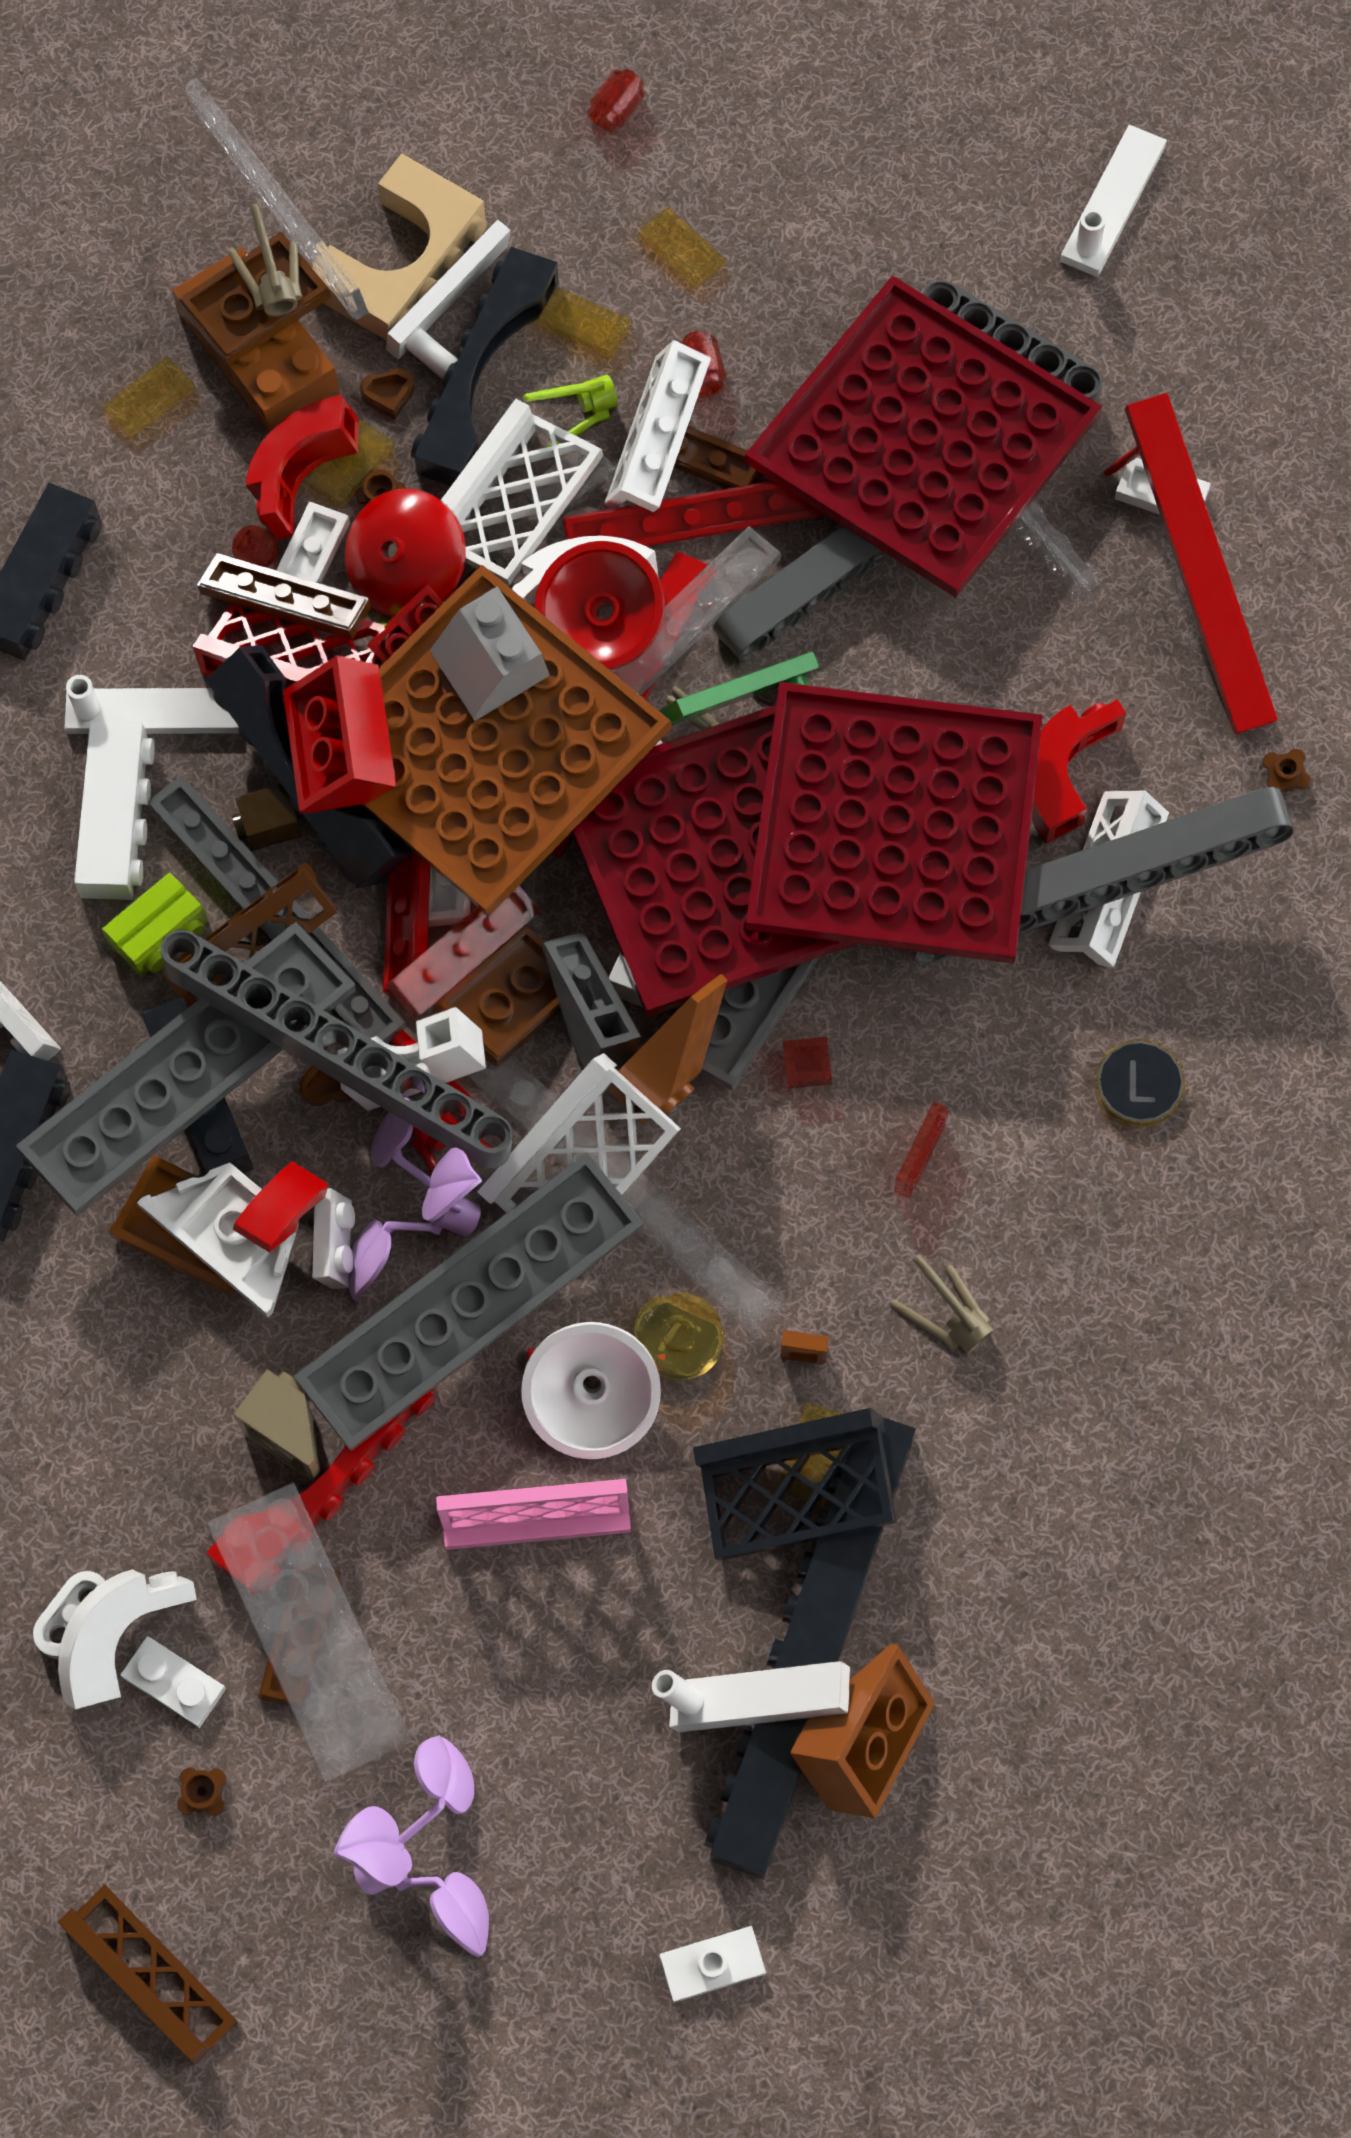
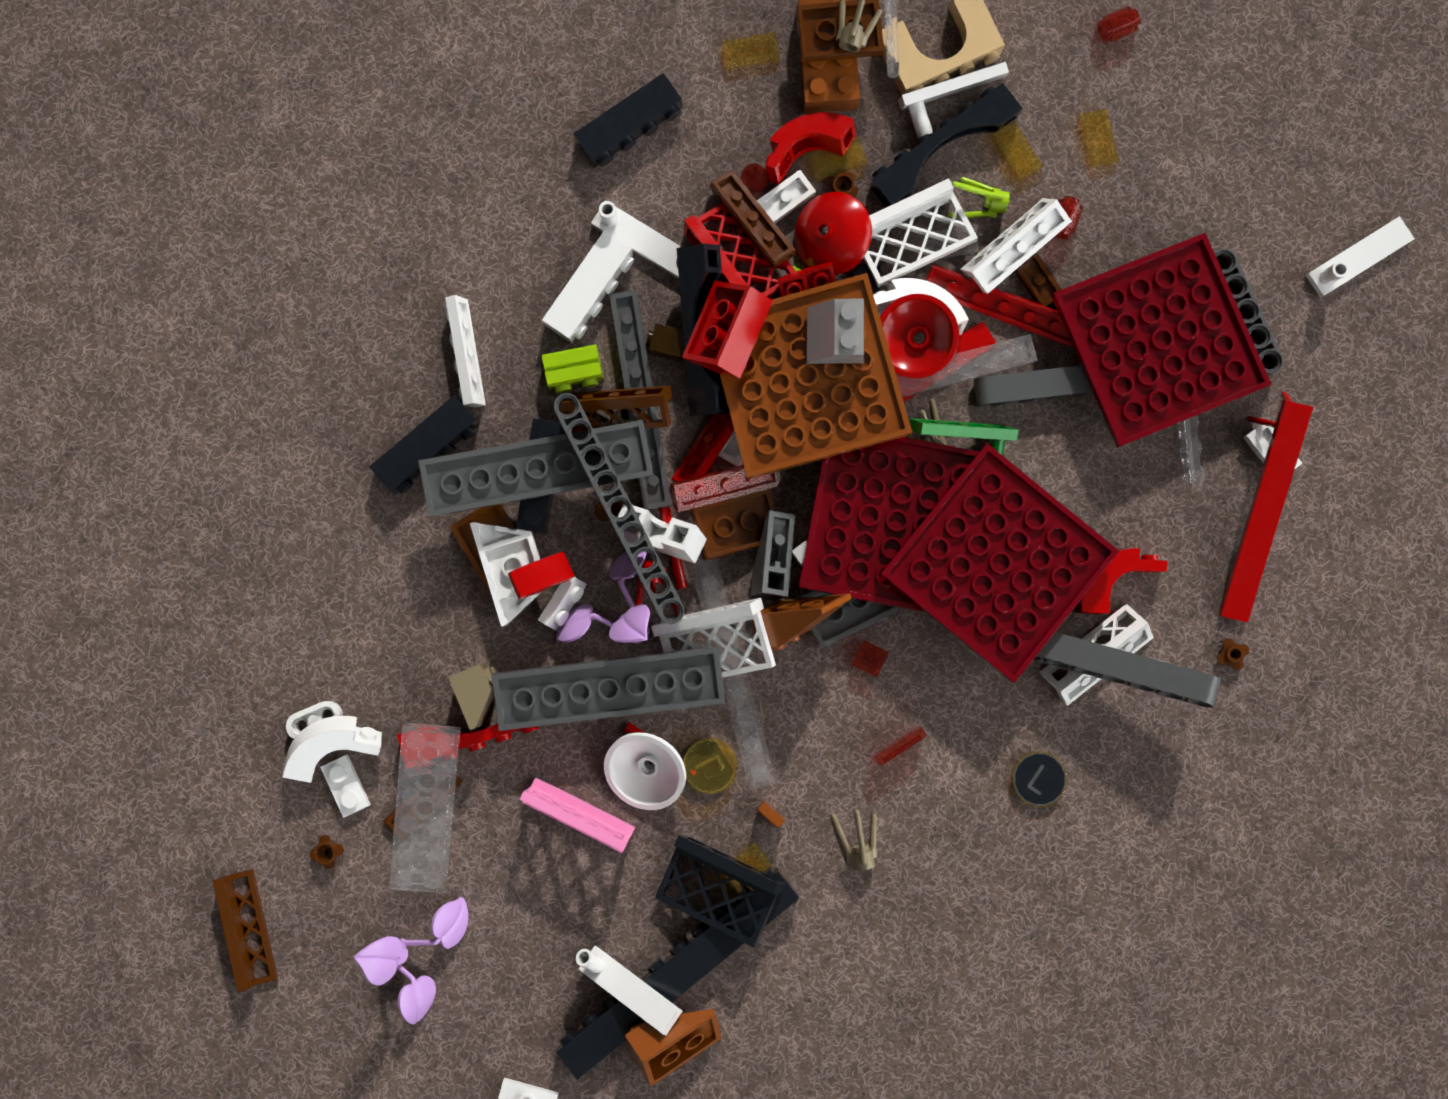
camera: 30 degrees right, 15 degrees up
(388, 392) = (883, 127): reddish brown tile -> none

